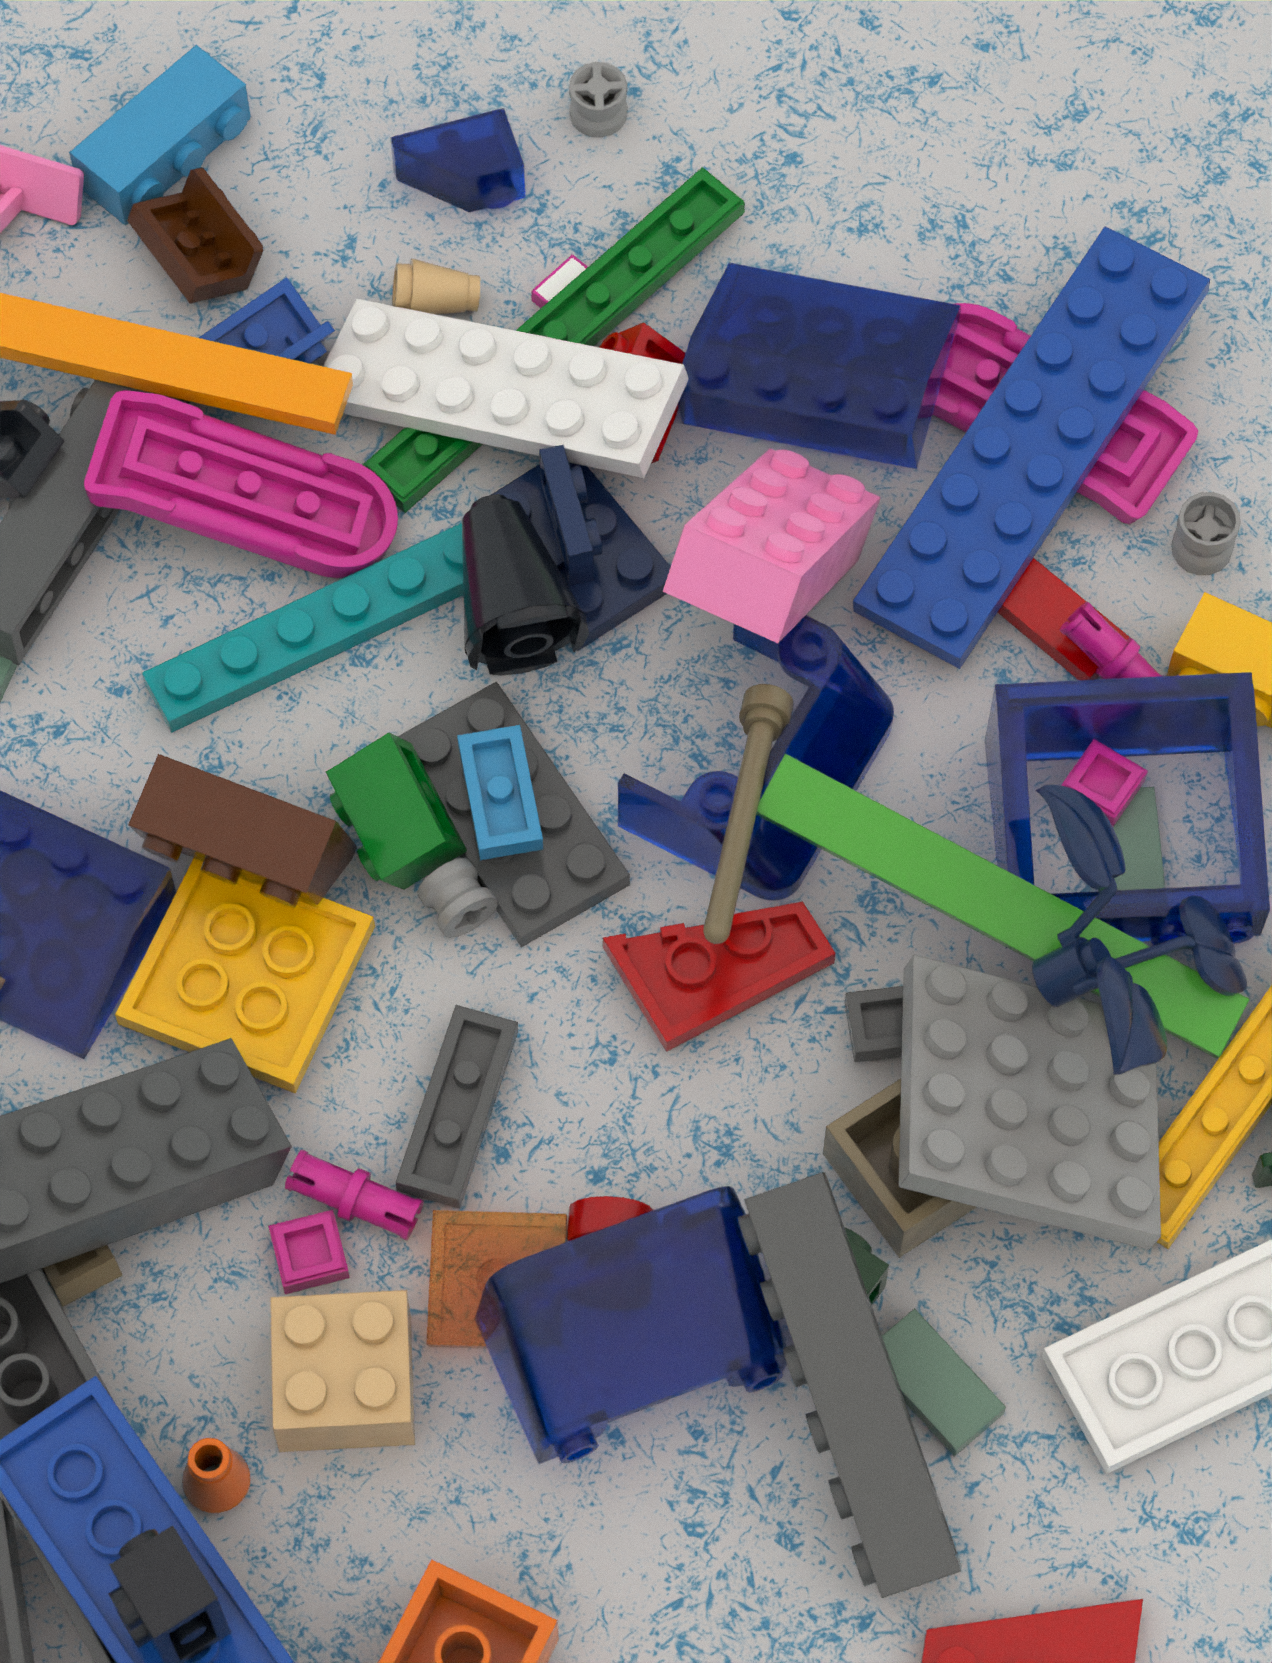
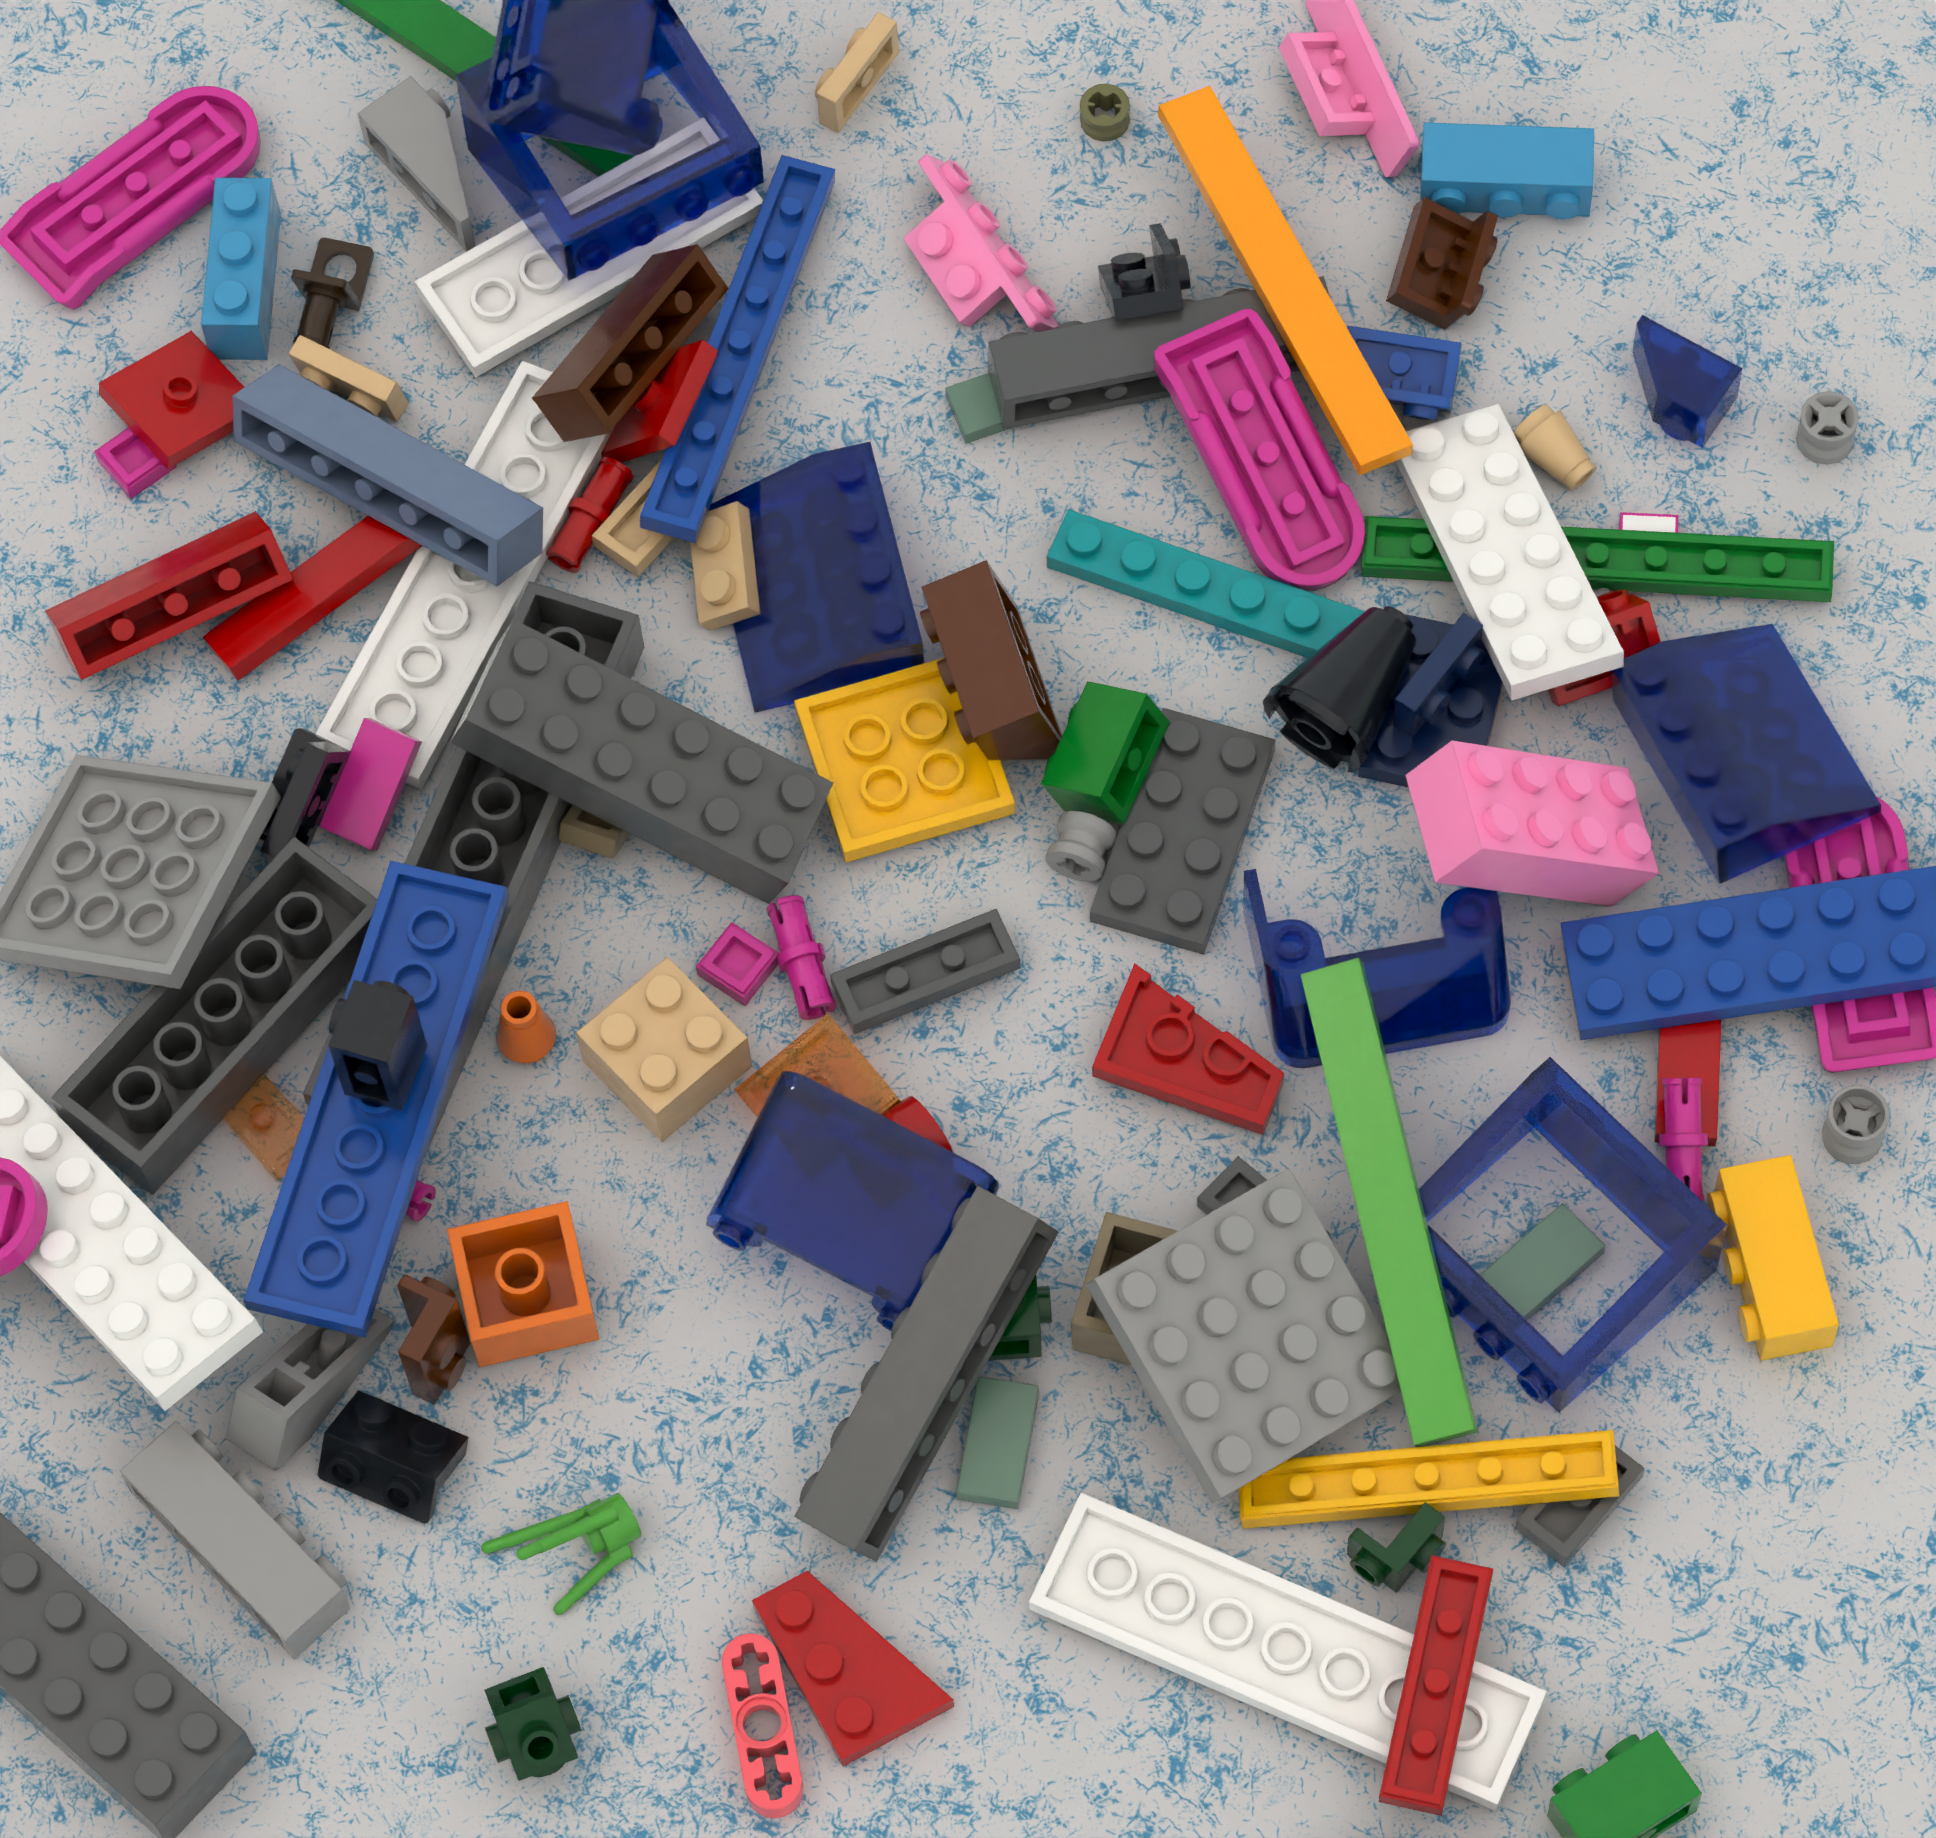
camera: 55 degrees right, 0 degrees up
(500, 792) = (1177, 805): dark azure plate -> none
(763, 717) = (1386, 926): dark tan piece -> none
(1085, 965) = (1342, 1332): dark blue plant -> none
(1106, 779) = (1570, 1205): dark pink tile -> none

